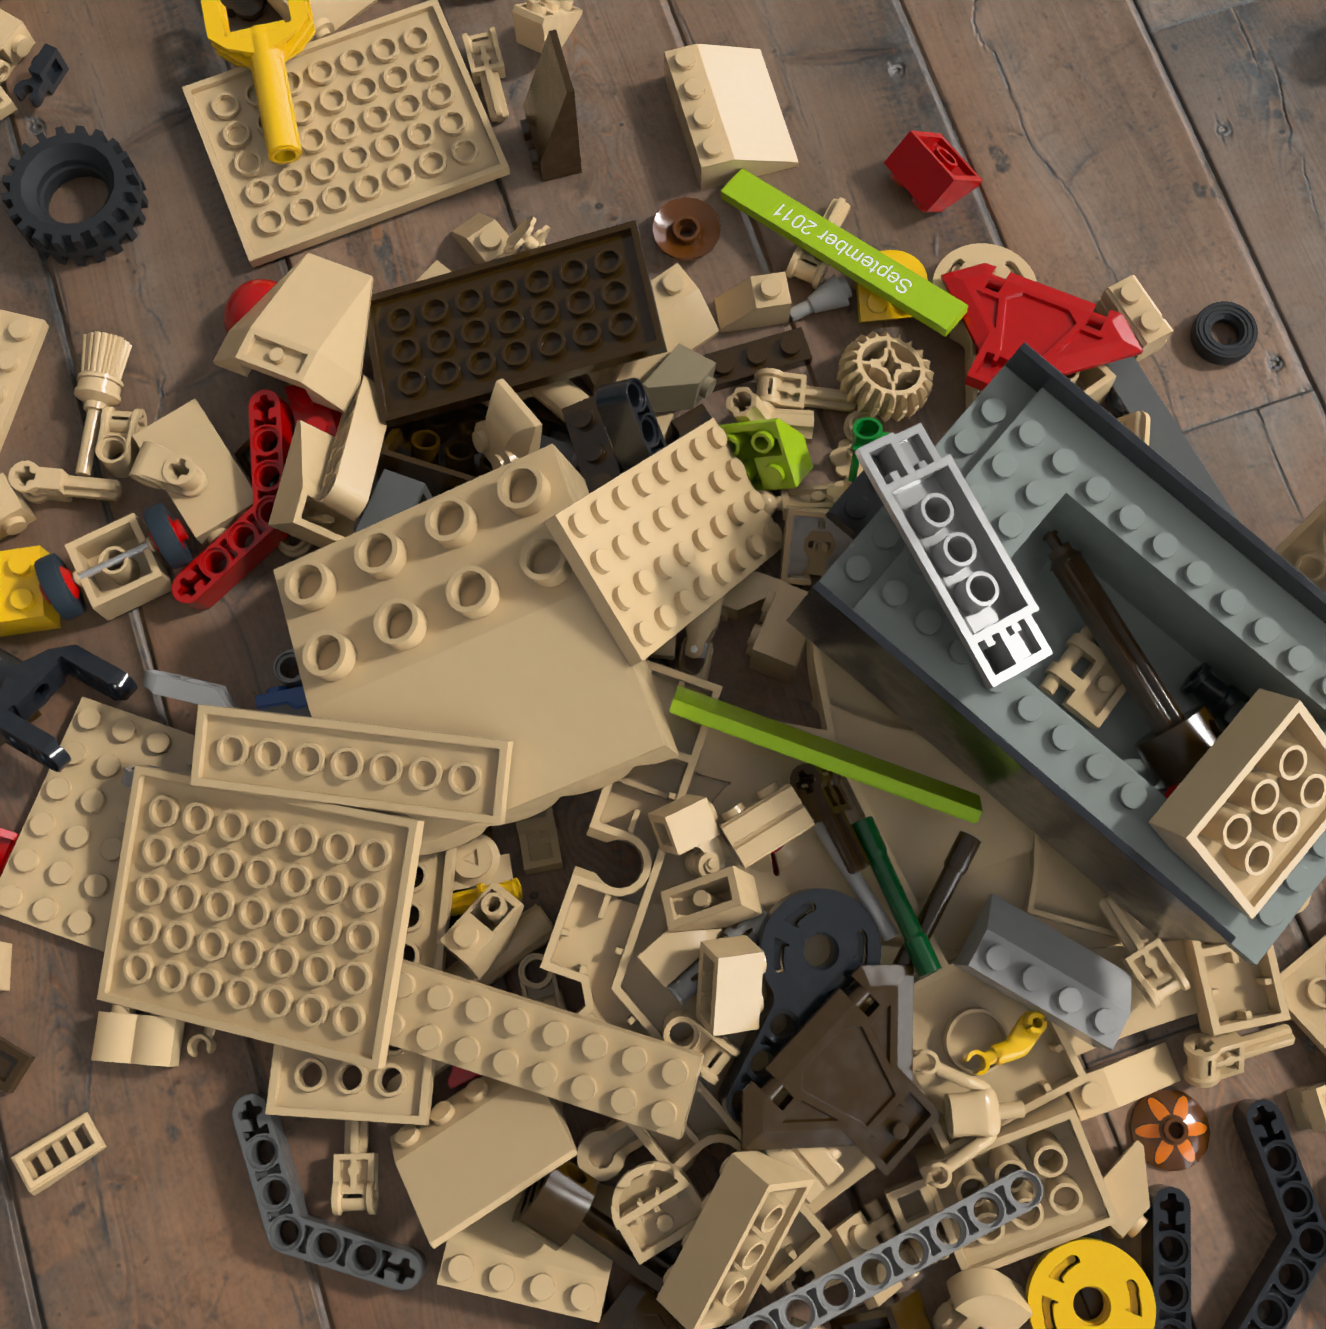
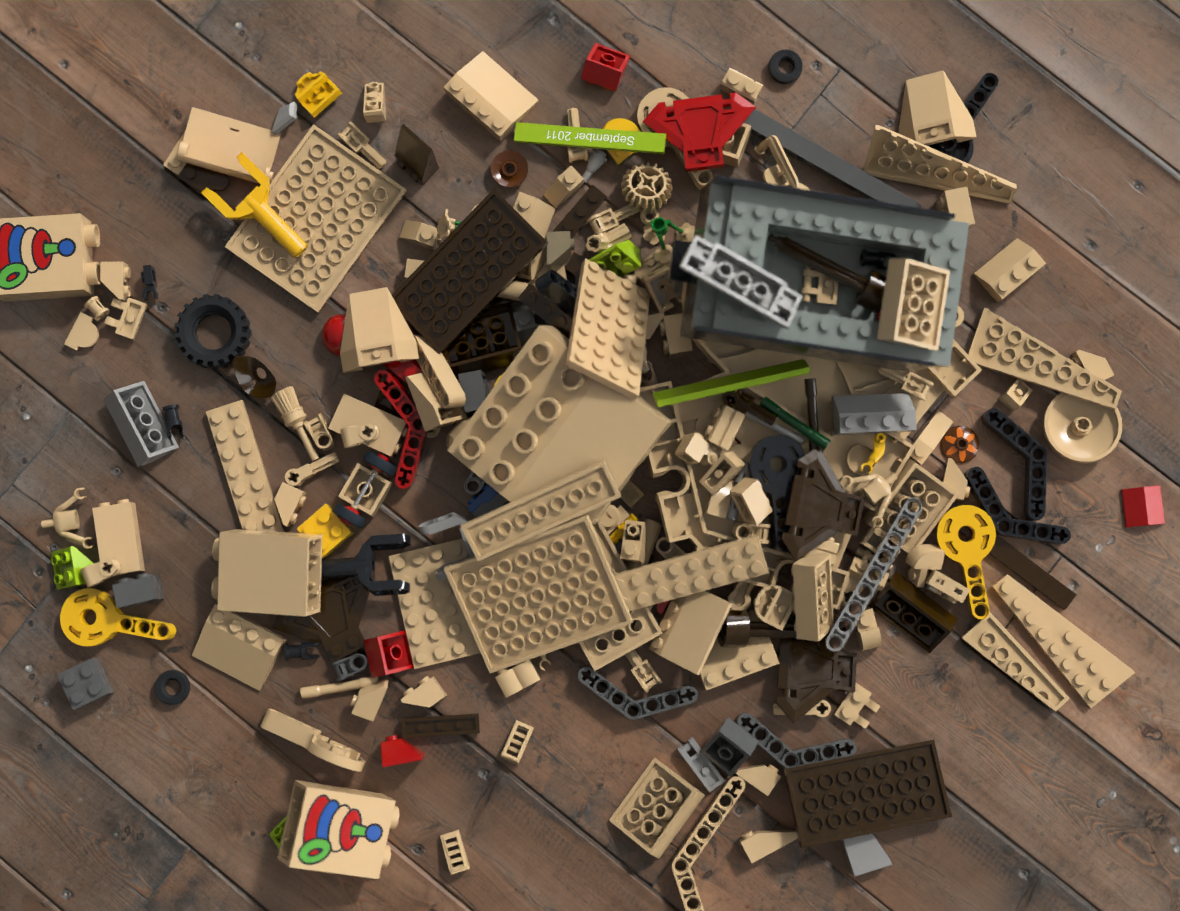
camera: 30 degrees left, 10 degrees up
(78, 287) = (246, 371): none -> dark brown piece
(509, 428) = (502, 324): tan slope -> none
(1225, 1053) = (965, 398): tan connector -> none

